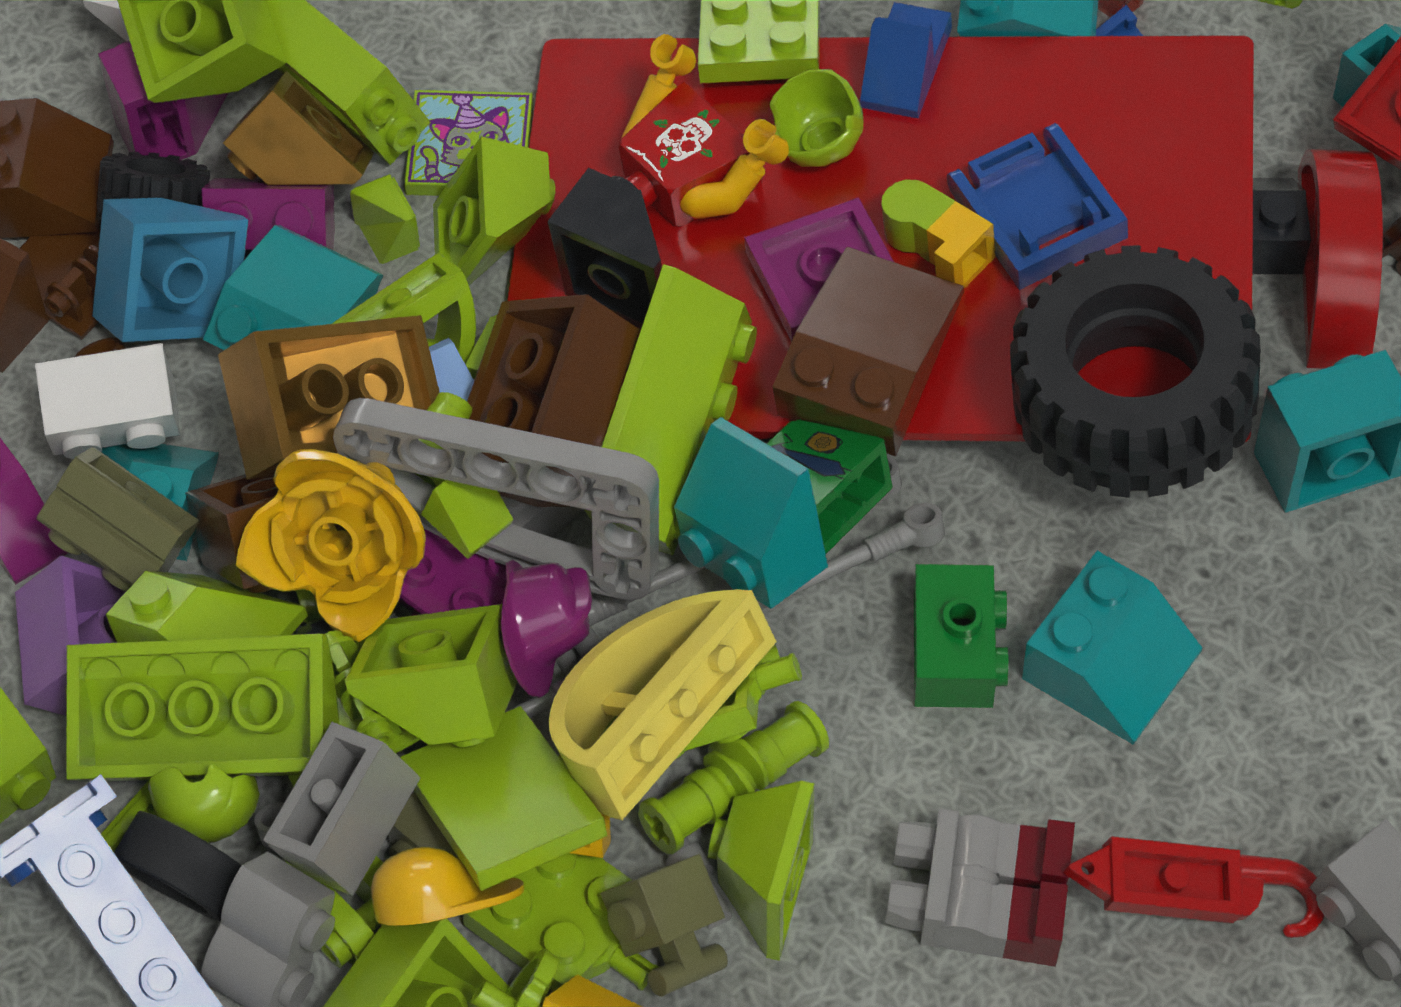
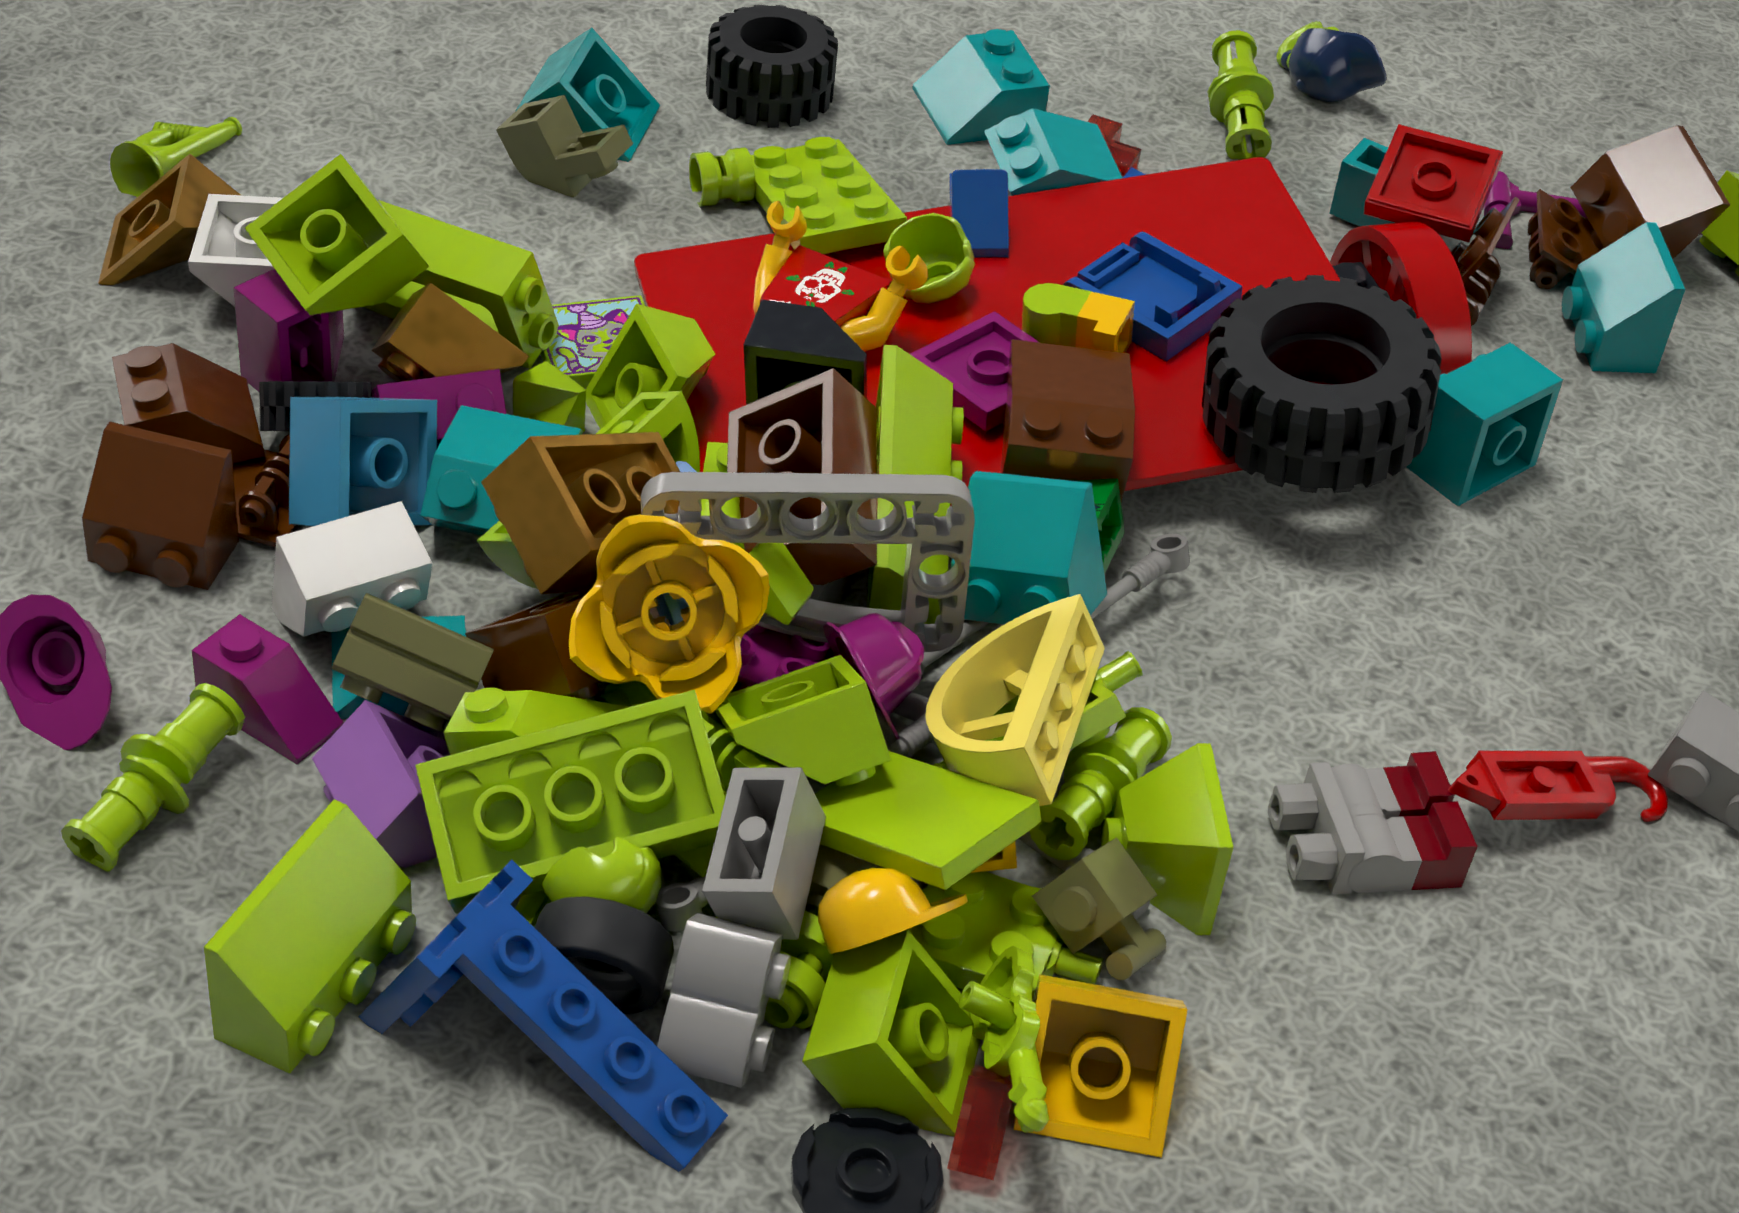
camera: 25 degrees left, 15 degrees down
(957, 636) = (1240, 637): green brick -> none
(1111, 648) = (1379, 622): teal slope -> none

